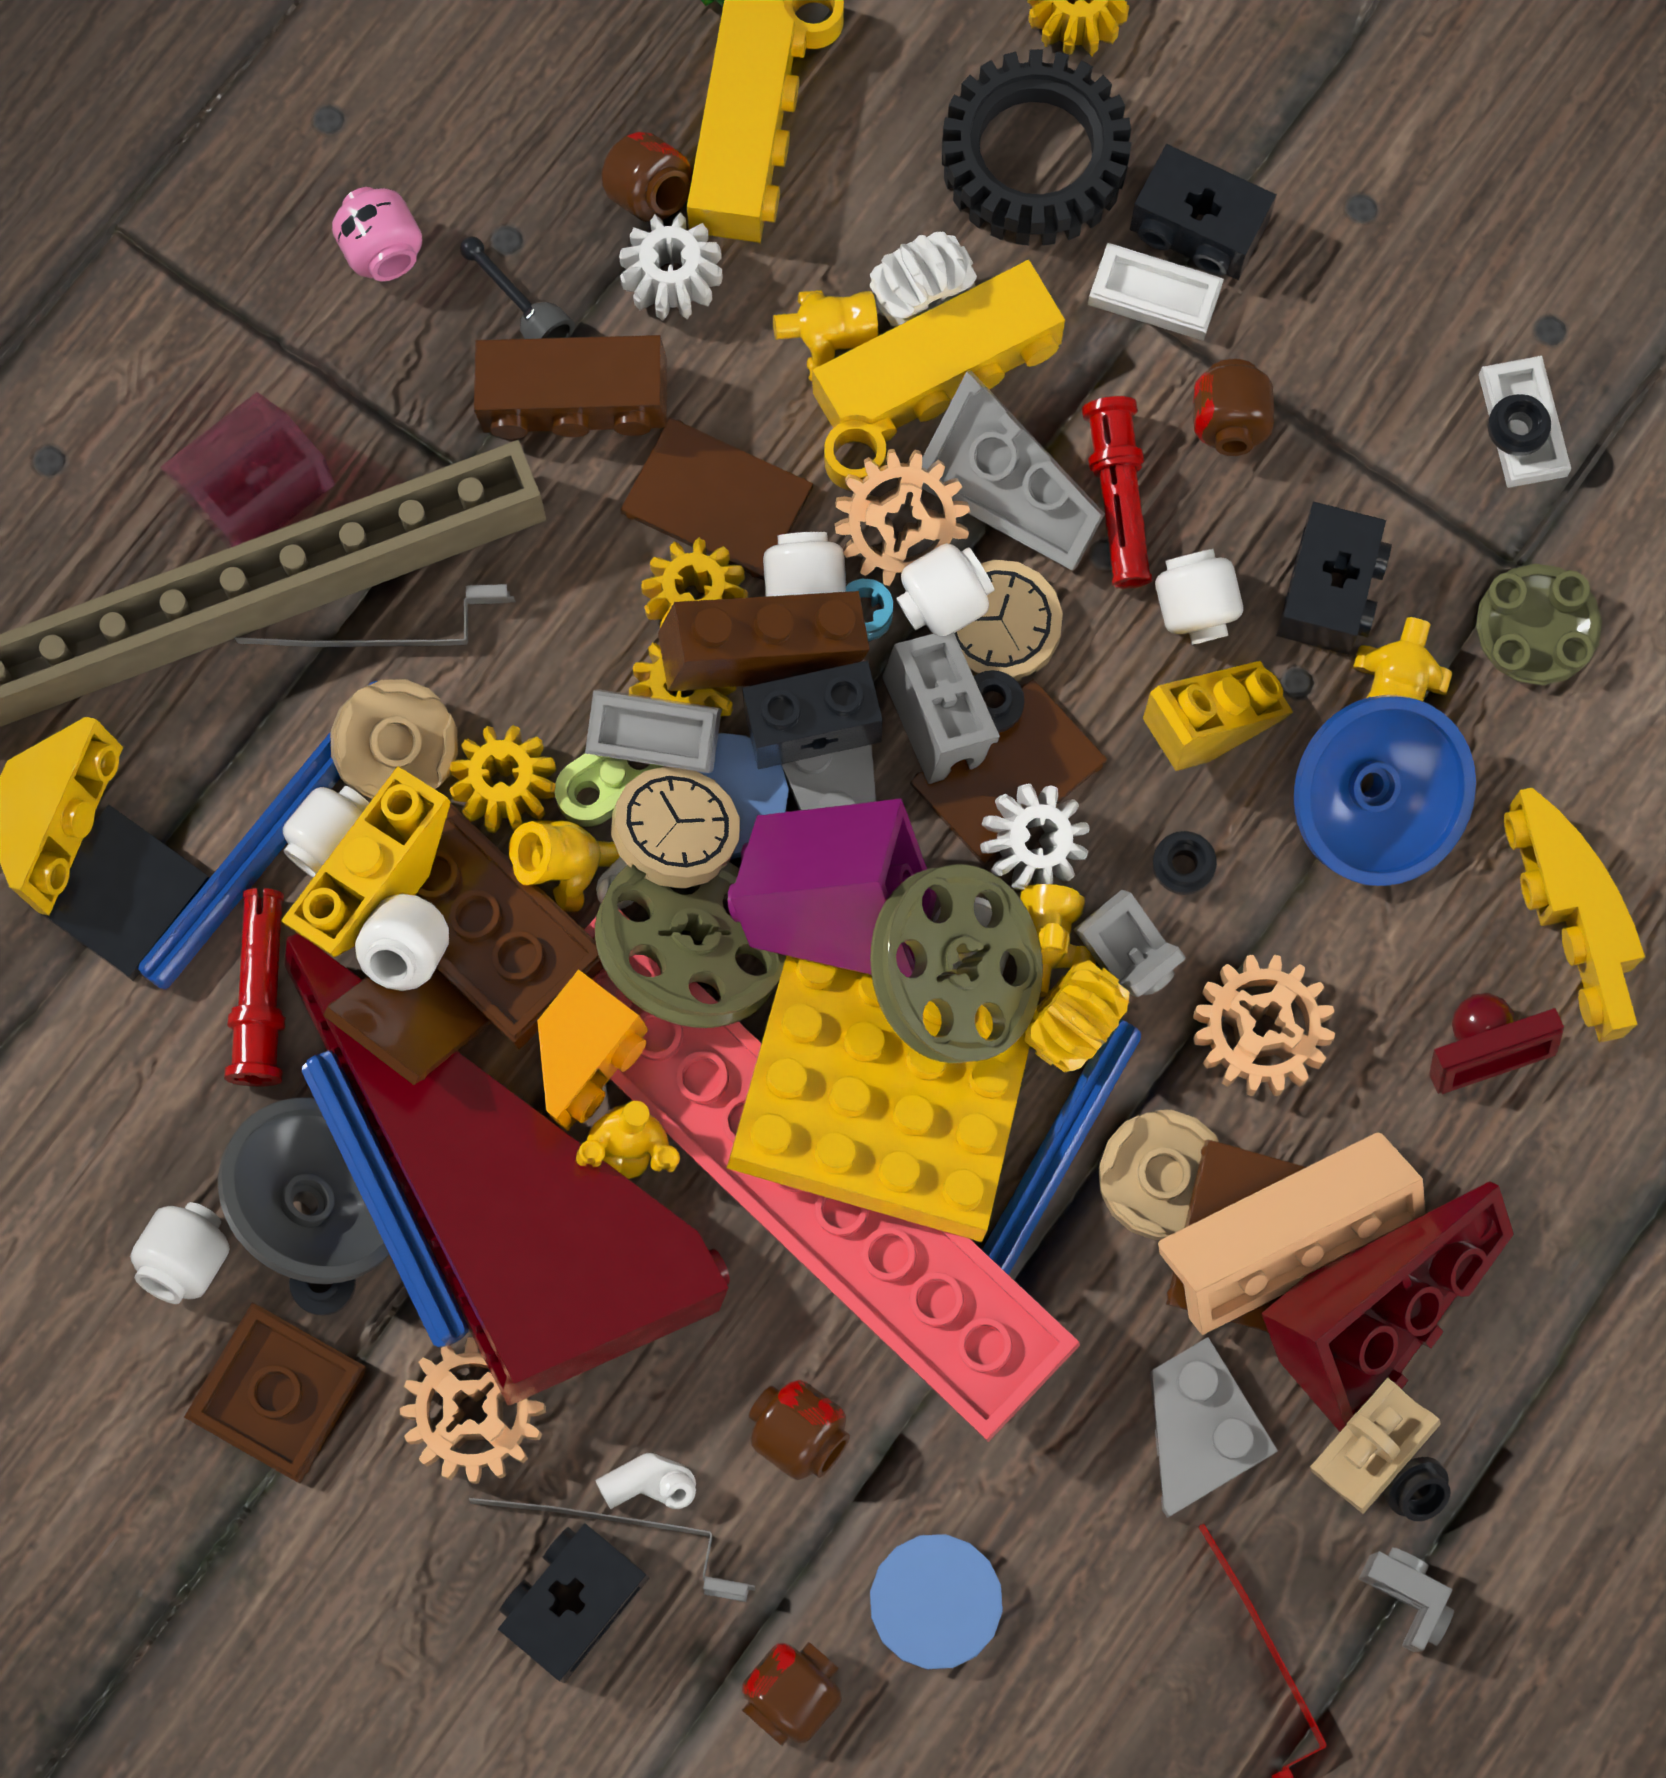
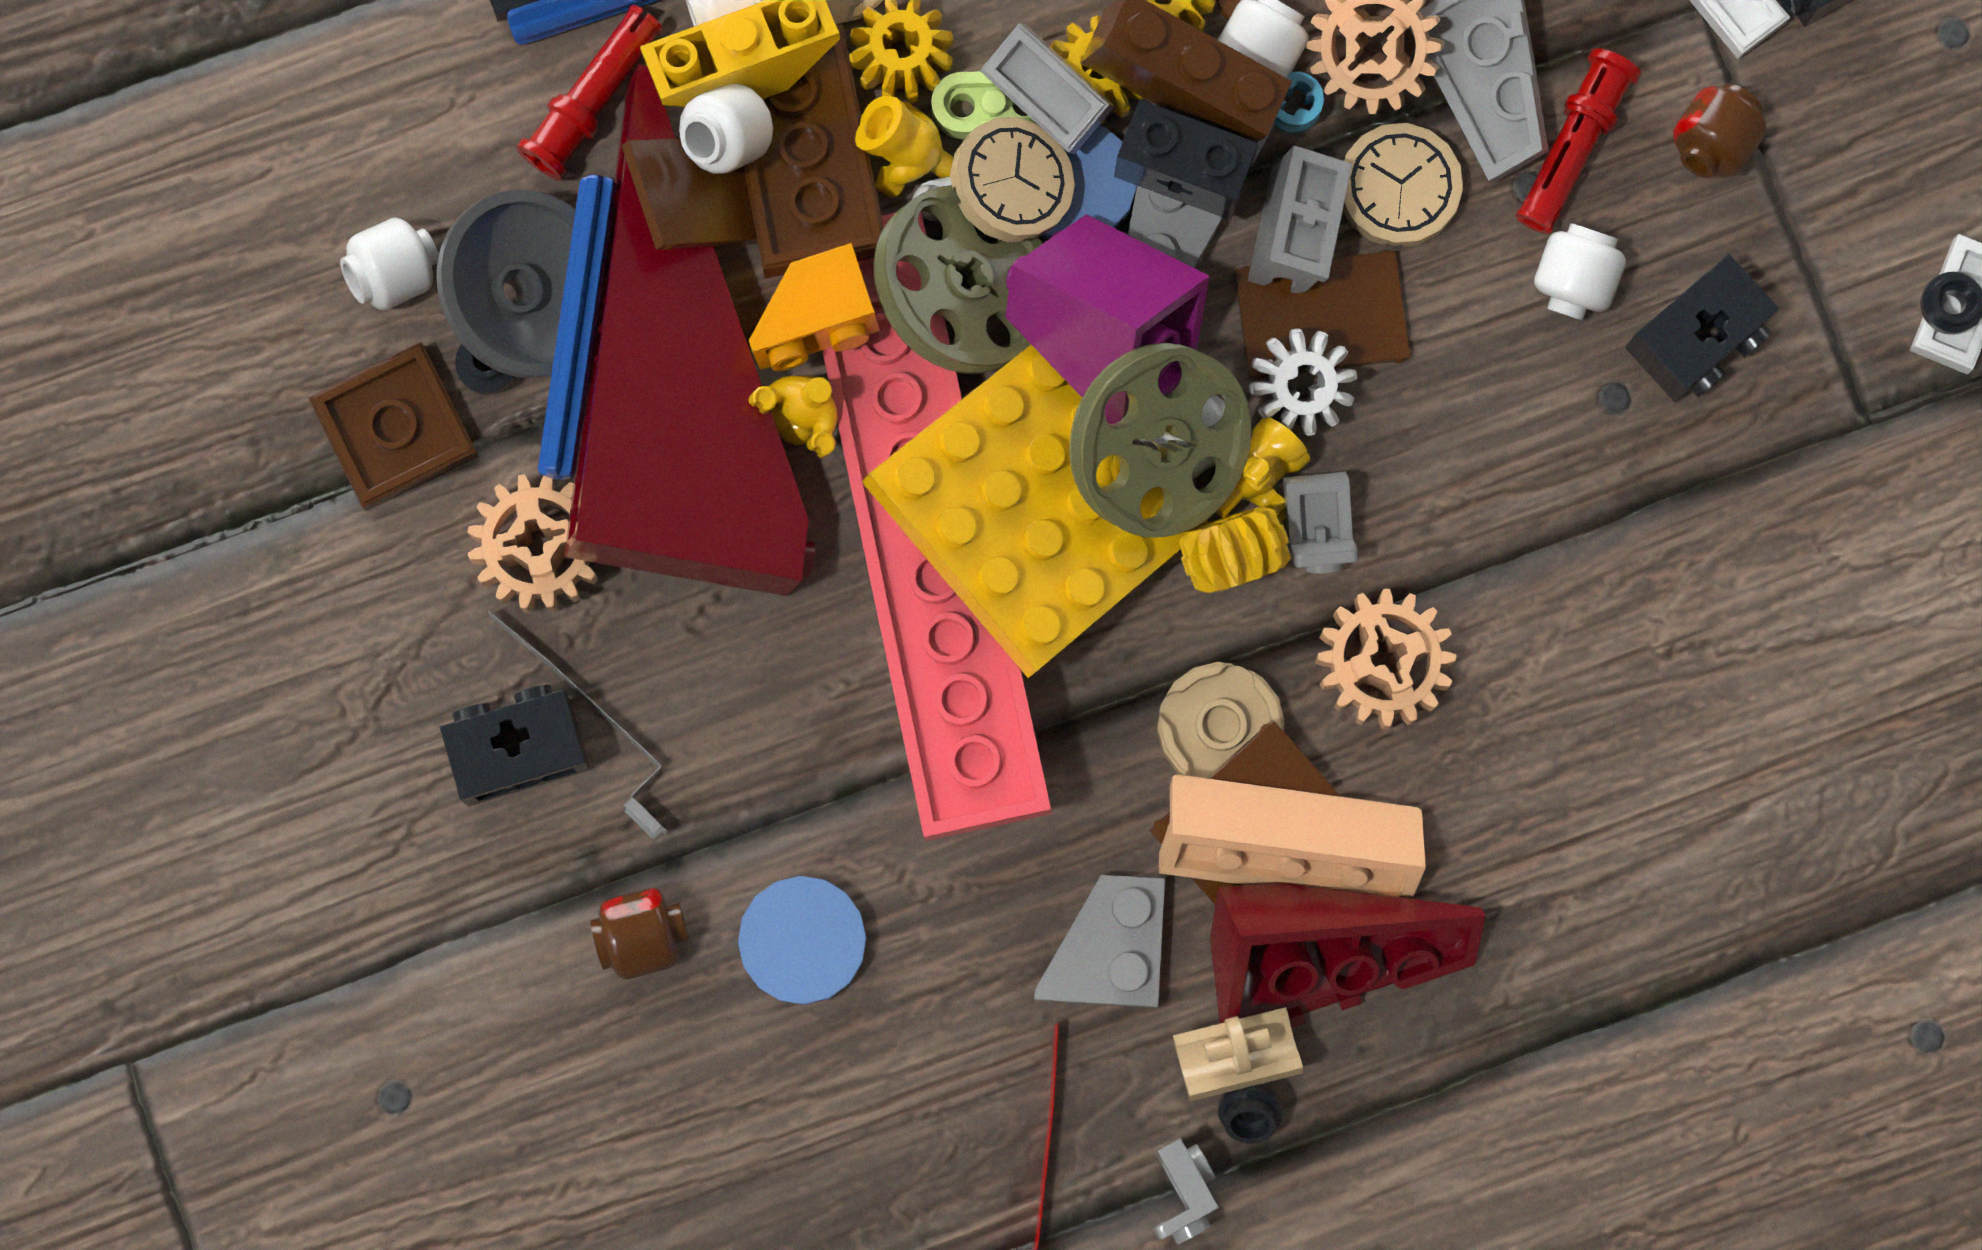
camera: 30 degrees right, 5 degrees up
(650, 1476) = (644, 691): white arm -> none
(798, 1429) = (783, 731): reddish brown head -> none
(945, 590) = (1367, 128): white head -> none
(1012, 709) = (1355, 264): black plate -> none
(1060, 1147) = (1151, 647): blue axle -> none
(1186, 844) = (1414, 465): black plate -> none
(1214, 712) = (1524, 376): yellow slope -> none
(1404, 665) = (1703, 449): yellow piece -> none
(1417, 795) = (1625, 568): blue dish -> none
(1492, 1042) = (1565, 798): dark red tile -> none
(1539, 623) = (1852, 481): olive dish -> none
(1573, 886) = (1724, 716): yellow slope -> none

